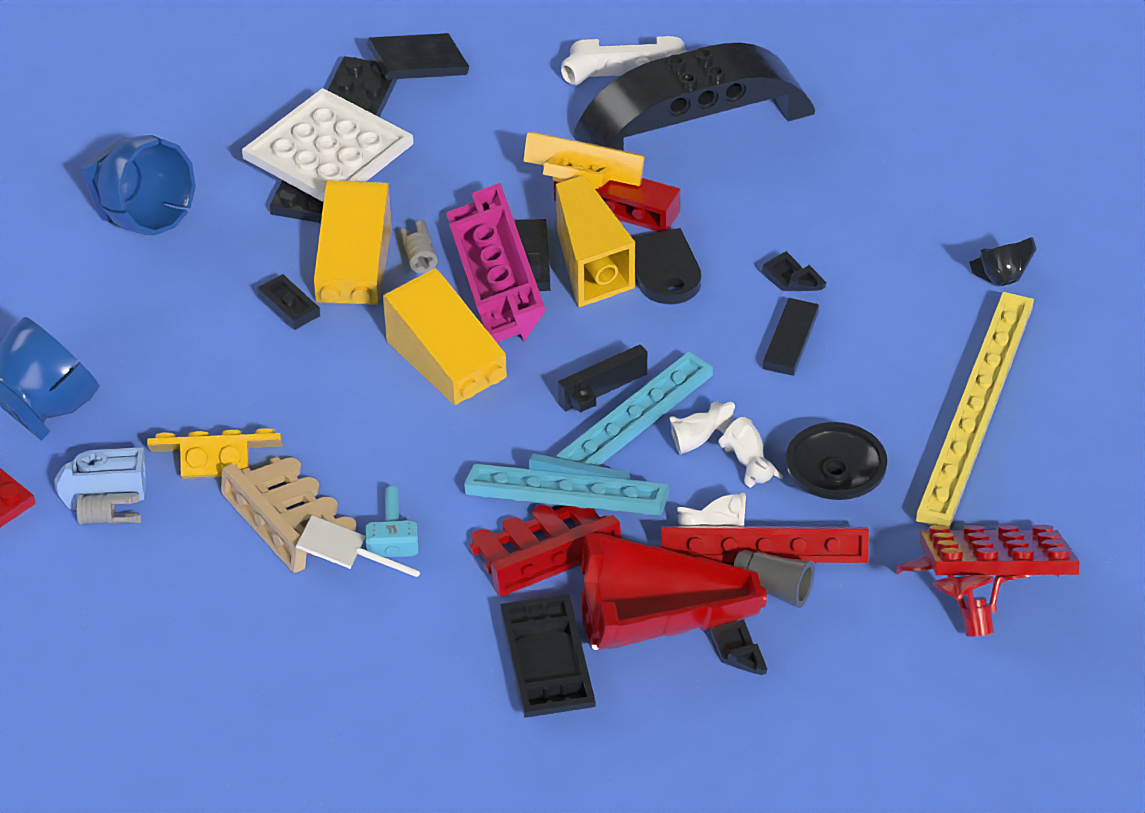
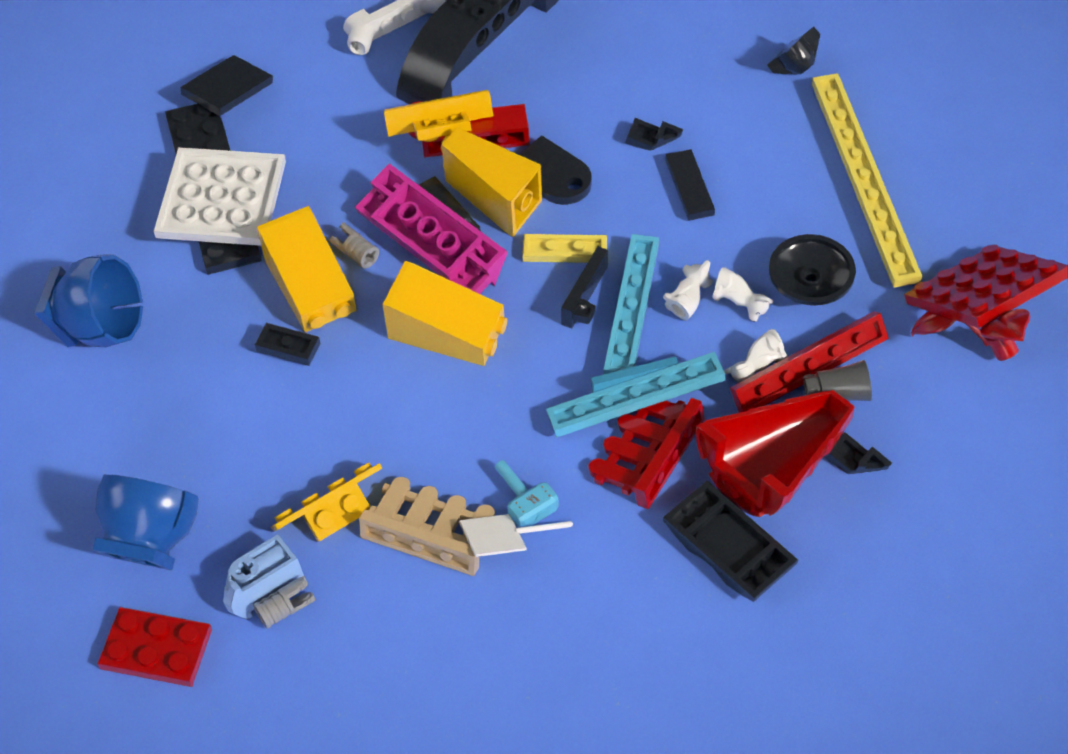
camera: 30 degrees left, 10 degrees up
(614, 335) = (561, 247): none -> light yellow tile

